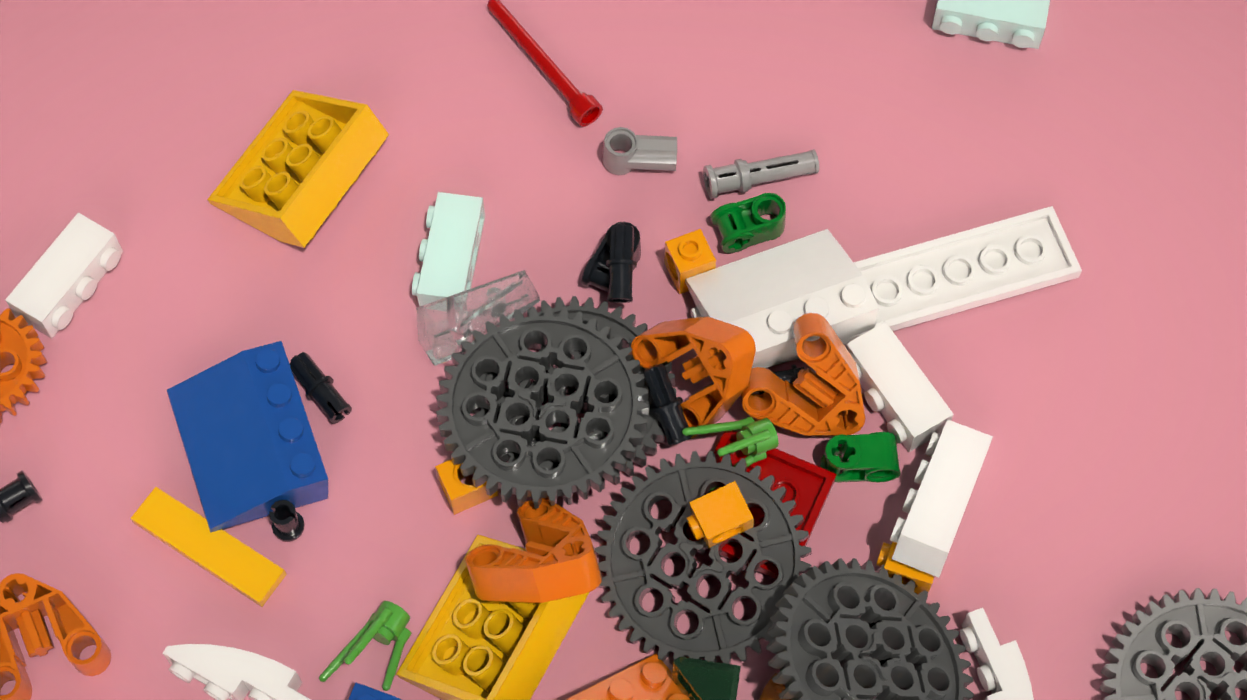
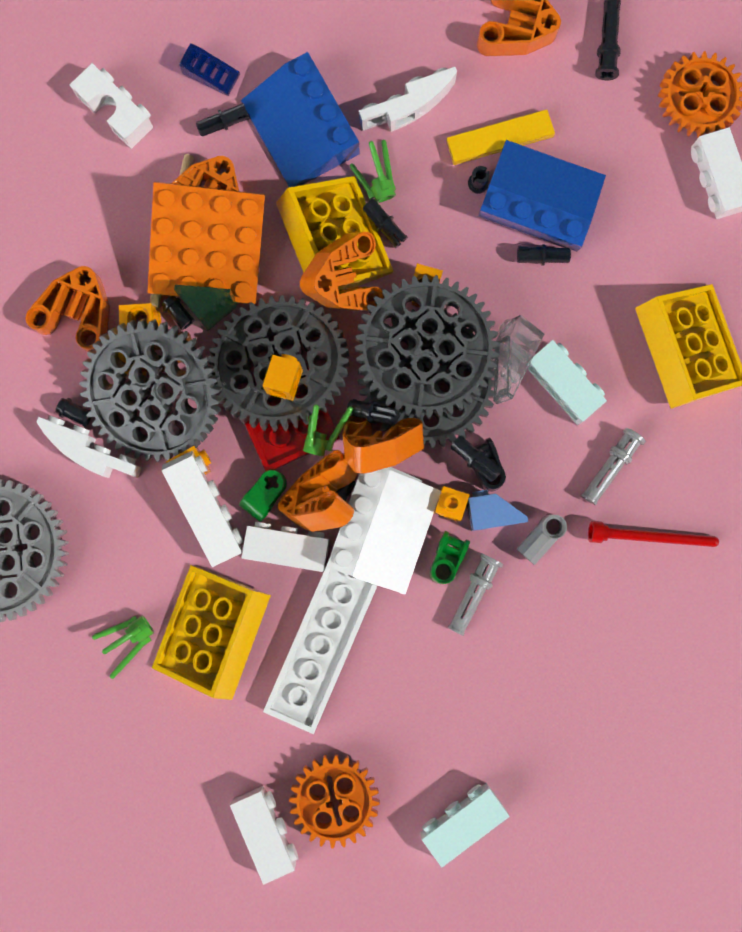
camera: 130 degrees right, 20 degrees up
(428, 587) = (384, 222): none -> black axle
(482, 146) = (618, 453): none -> light grey pin
(660, 214) = (492, 511): none -> medium blue slope
(1059, 391) = (211, 633): none -> yellow slope
(1063, 120) = (310, 805): none -> orange gear
(1136, 465) = (138, 630): none -> bright green plant
(1191, 175) = (264, 834): none -> white brick

